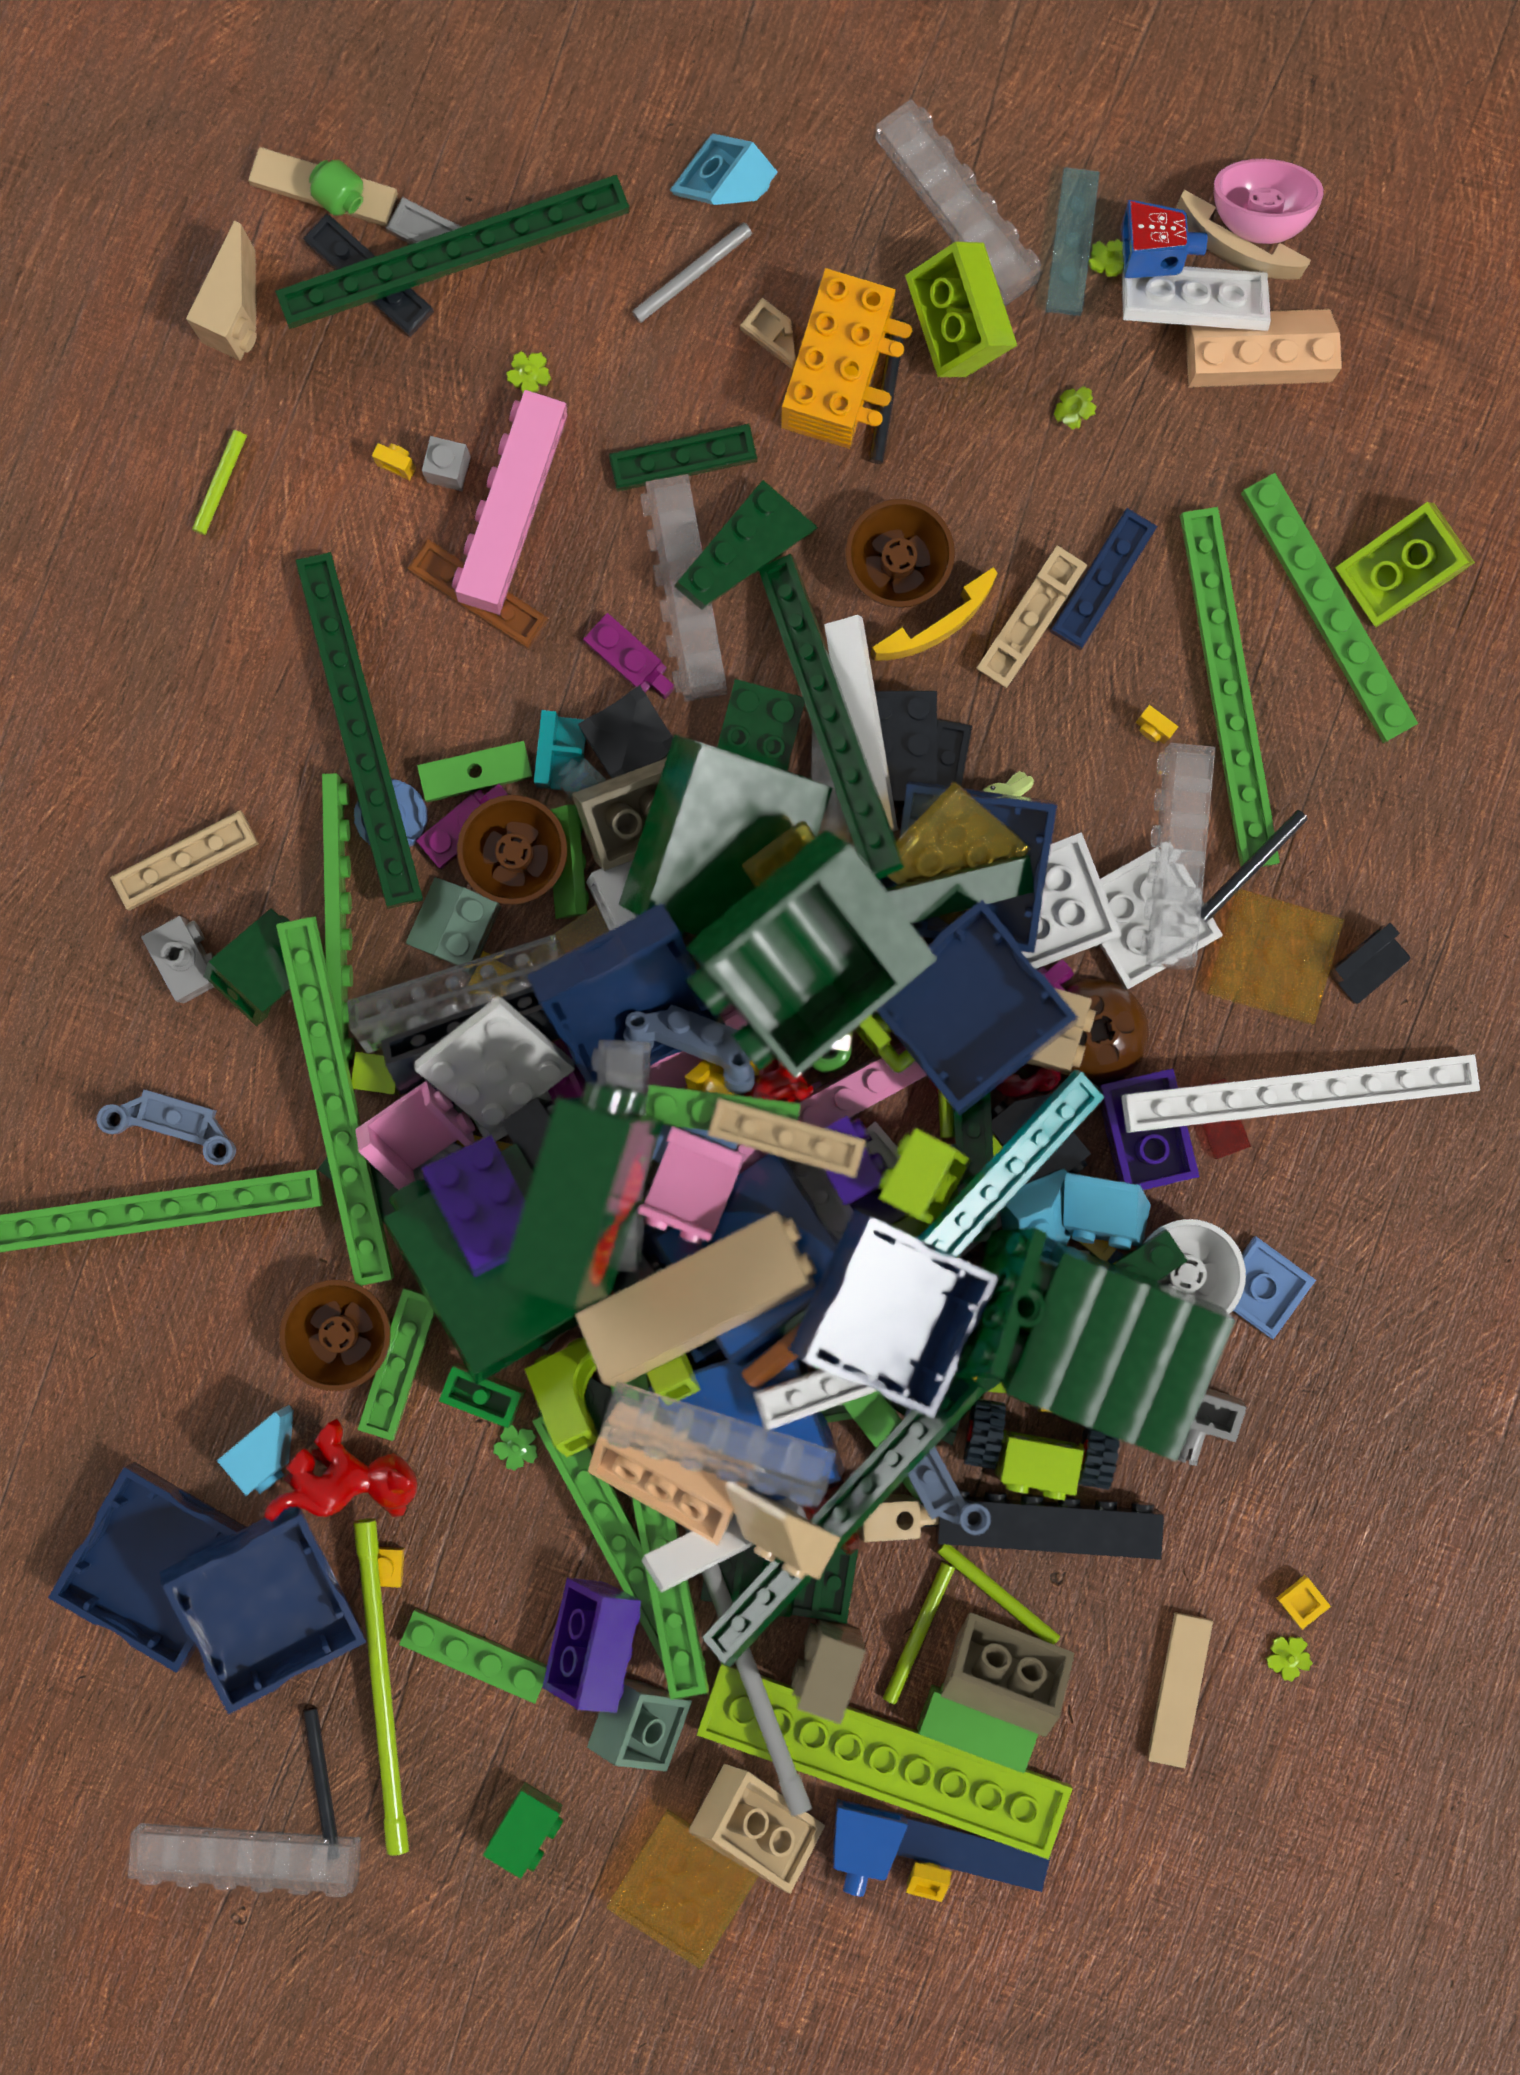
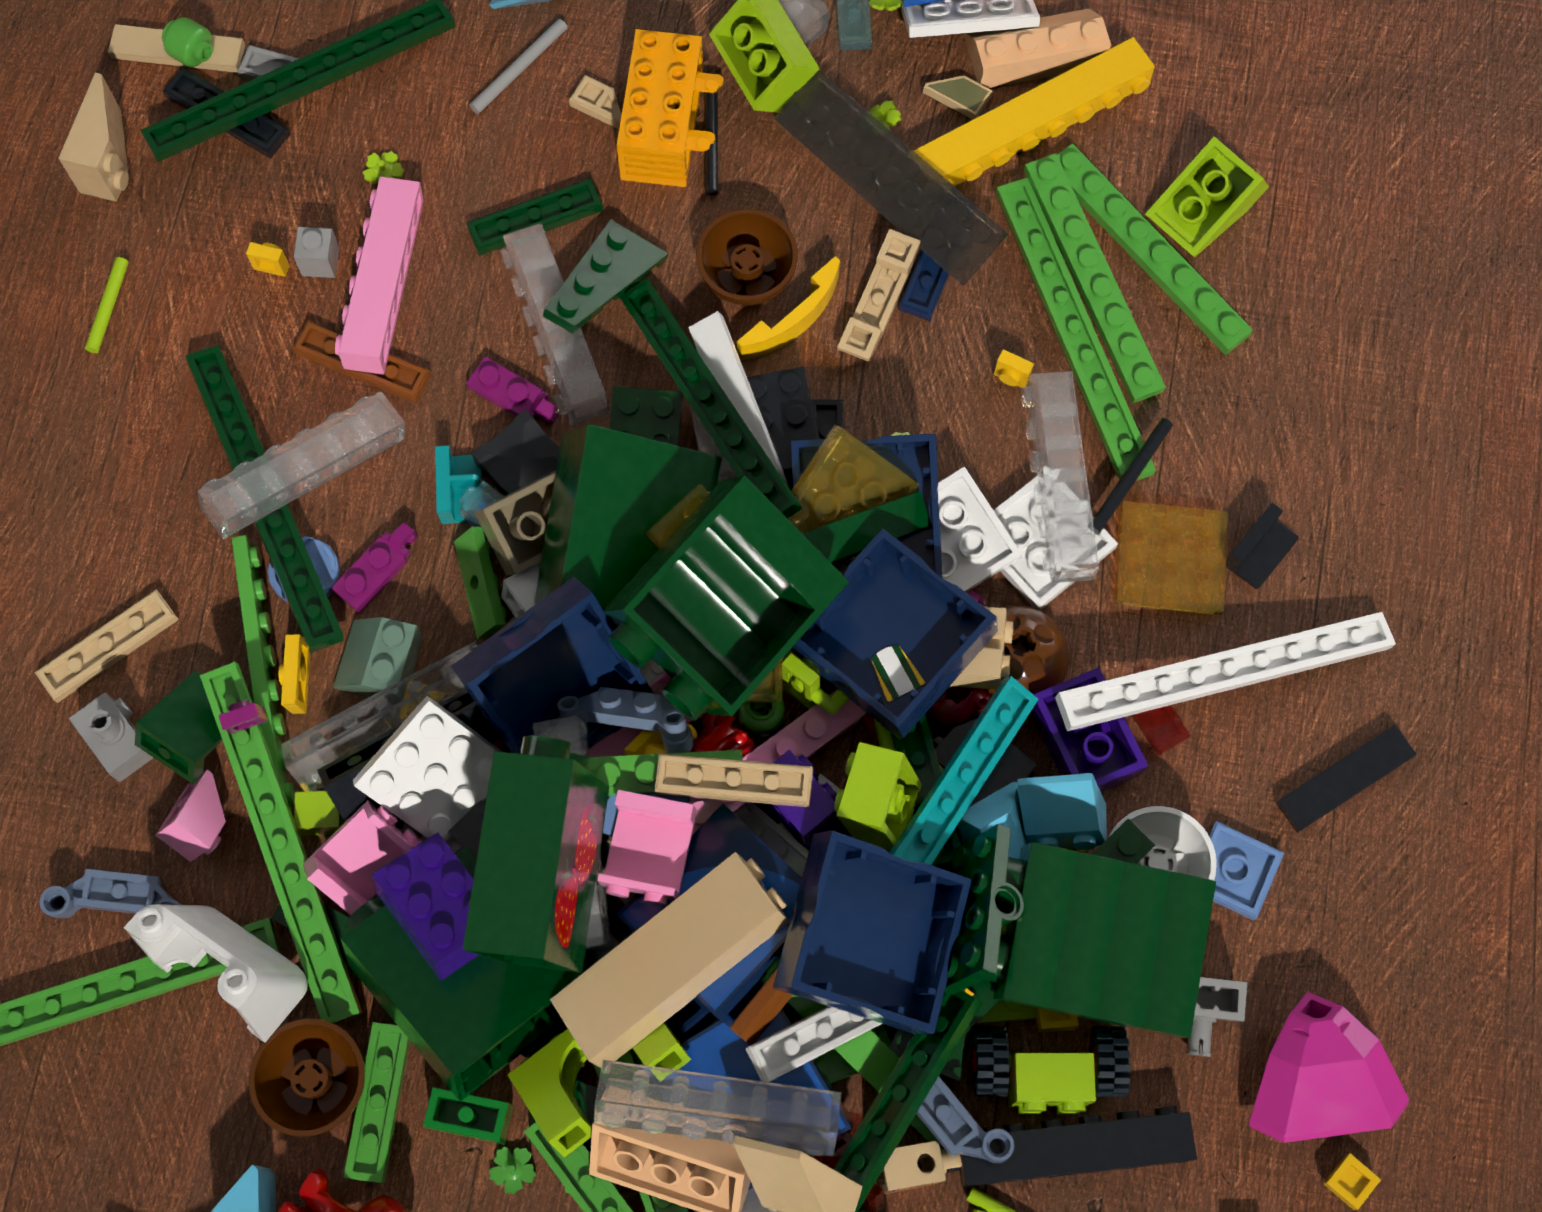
camera: 10 degrees left, 15 degrees down
(254, 1060) = (194, 819): none -> bright pink slope
(305, 1237) = (257, 978): none -> white windscreen
(314, 976) = (242, 716): none -> magenta plate
(368, 927) = (295, 674): none -> yellow plate
(403, 706) = (300, 464): none -> clear brick
(452, 775) = (360, 523): bright green tile -> none
(502, 832) = (416, 559): reddish brown piece -> none
(967, 1046) = (896, 672): none -> sticker
(1069, 481) = (891, 177): none -> clear smoke plate
(1166, 391) = (960, 94): none -> tile
(1238, 435) = (1040, 113): none -> yellow brick
(1263, 633) = (1094, 279): none -> bright green plate
(1302, 1506) = (1326, 1077): none -> dark pink brick
(1396, 1216) = (1345, 778): none -> black tile

